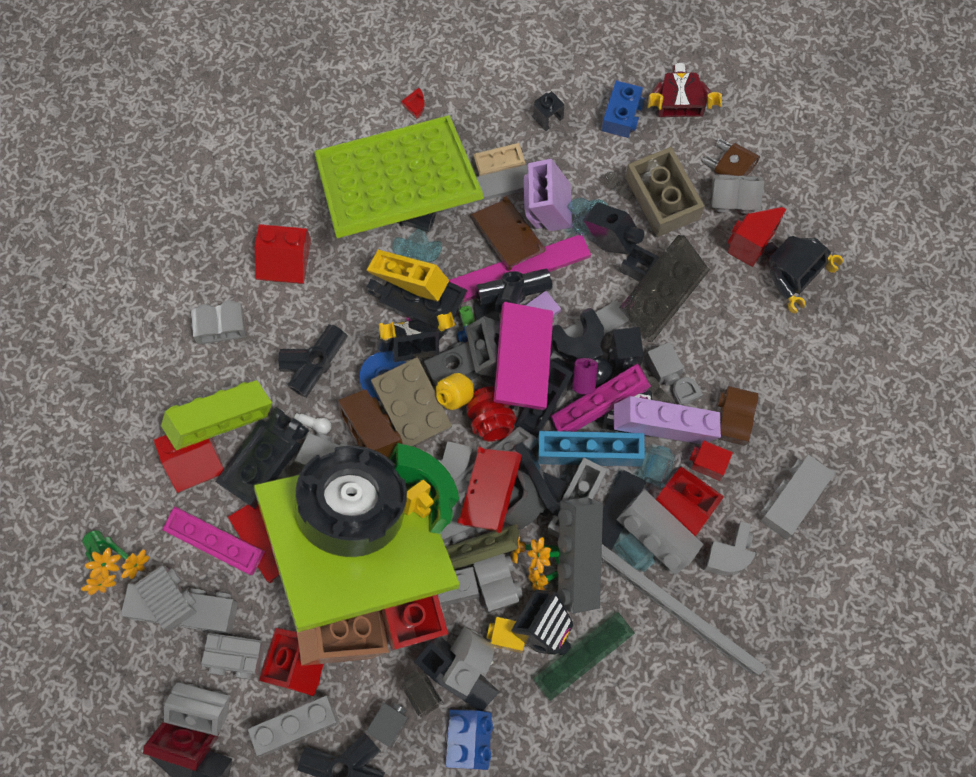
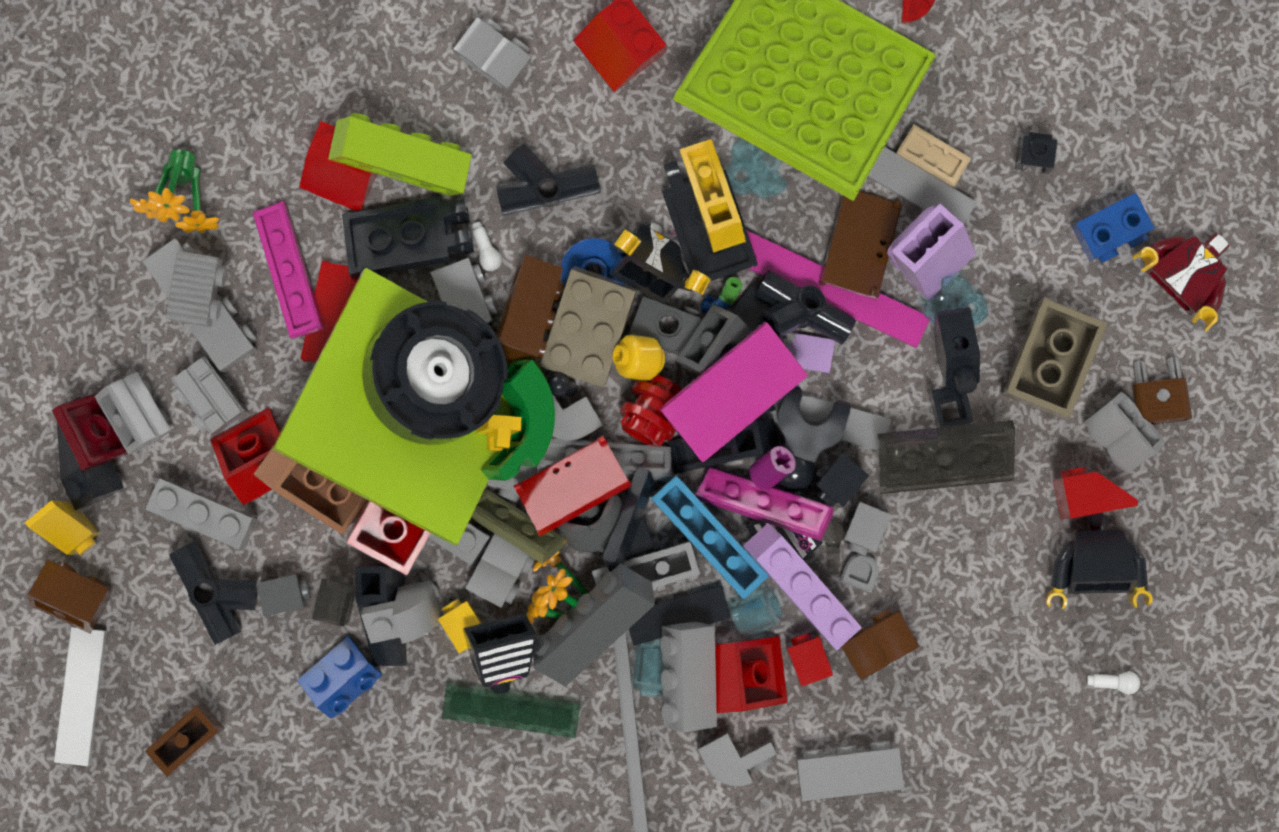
camera: 45 degrees right, 15 degrees up
(429, 447) = (560, 385): none -> black piece
(875, 310) = (1127, 682): none -> white piece

